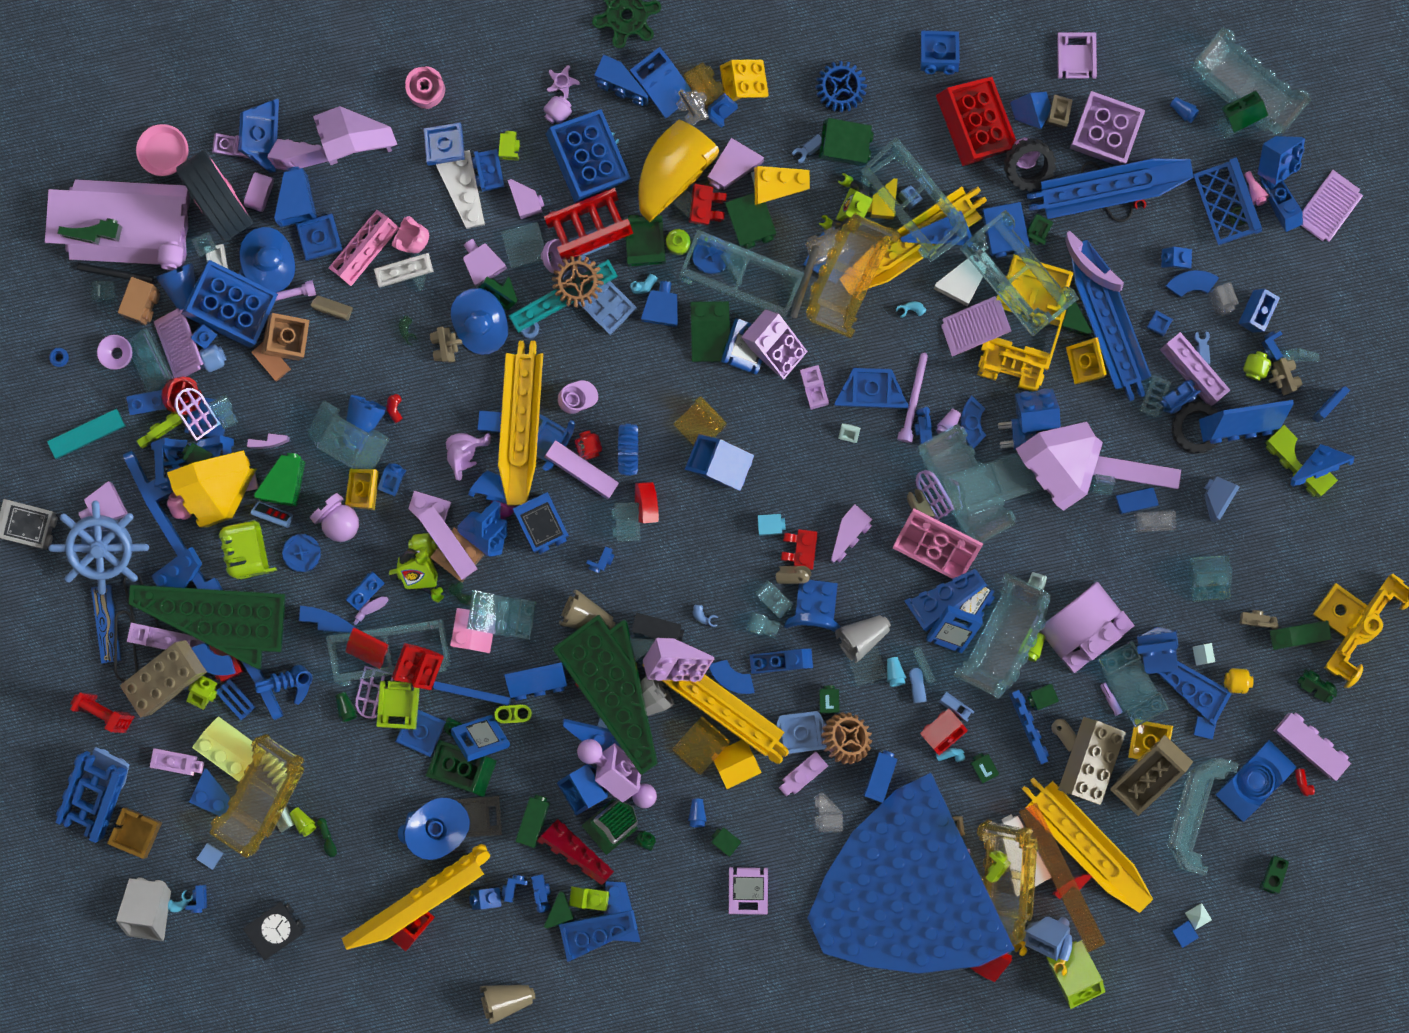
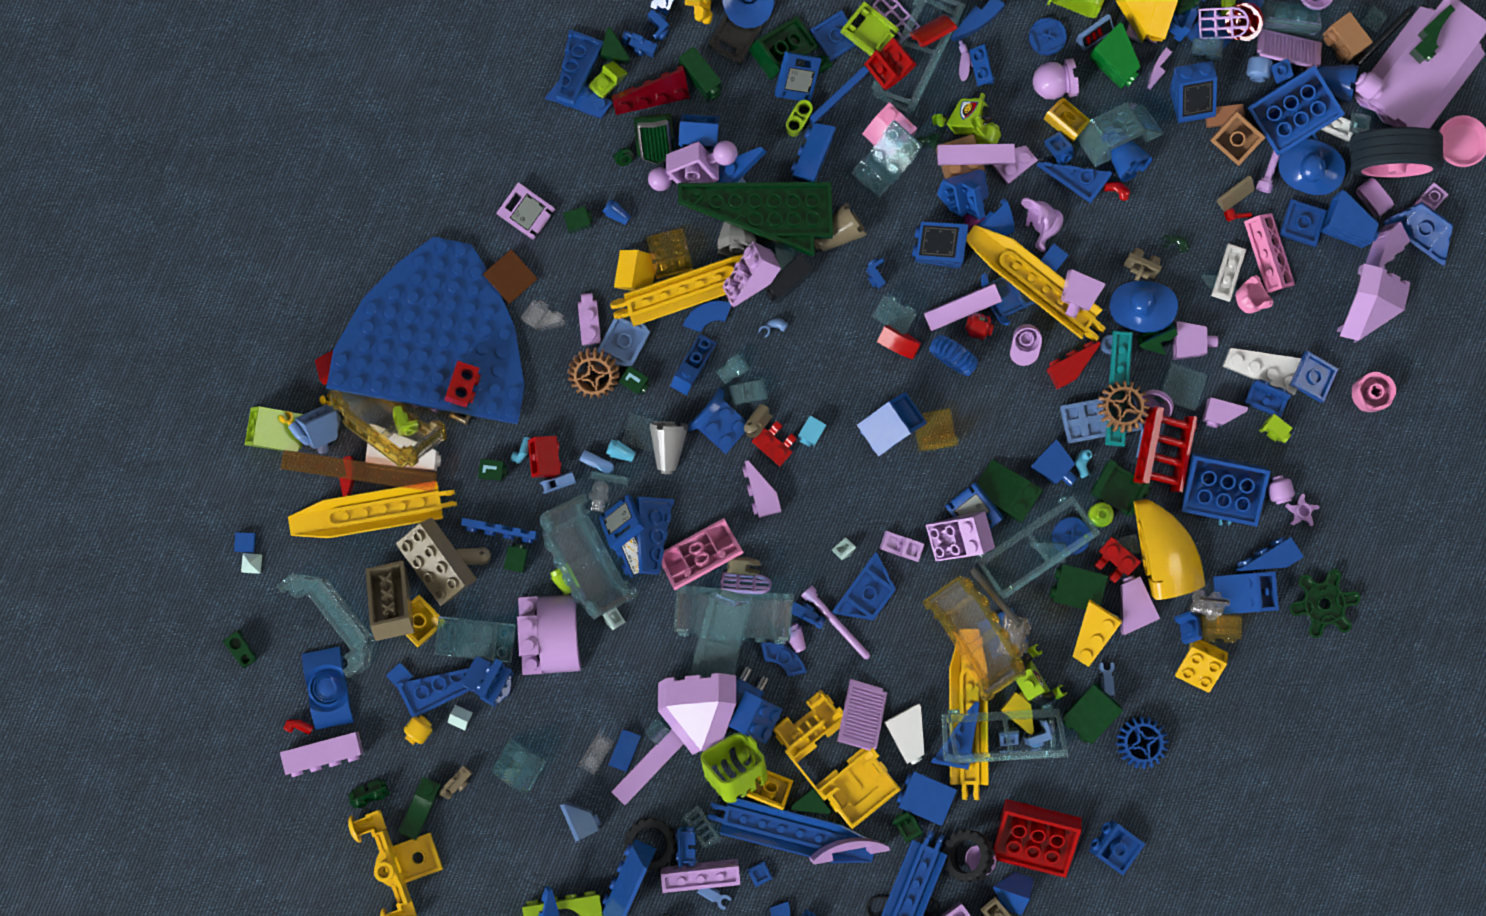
camera: 125 degrees right, 0 degrees up
(271, 397) = (1194, 91): none -> blue slope
(352, 300) = (1231, 215): none -> red hand
(407, 441) = (1082, 181): none -> blue wing
(506, 379) = (1080, 292): none -> lavender torso
(573, 347) = (1069, 369): none -> red slope
(812, 866) = (510, 276): none -> reddish brown slope
(880, 776) = (543, 379): blue slope -> none
(894, 170) = (1038, 739): none -> medium blue bracket
(914, 305) = (912, 677): medium azure arm -> none
(933, 844) = (459, 383): none -> red brick
(945, 662) = (599, 496): none -> clear hips
(975, 251) = (927, 758): clear light blue windscreen -> none
(1095, 385) = (744, 780): none -> lime piece
(1111, 700) = (476, 614): lavender piece -> none

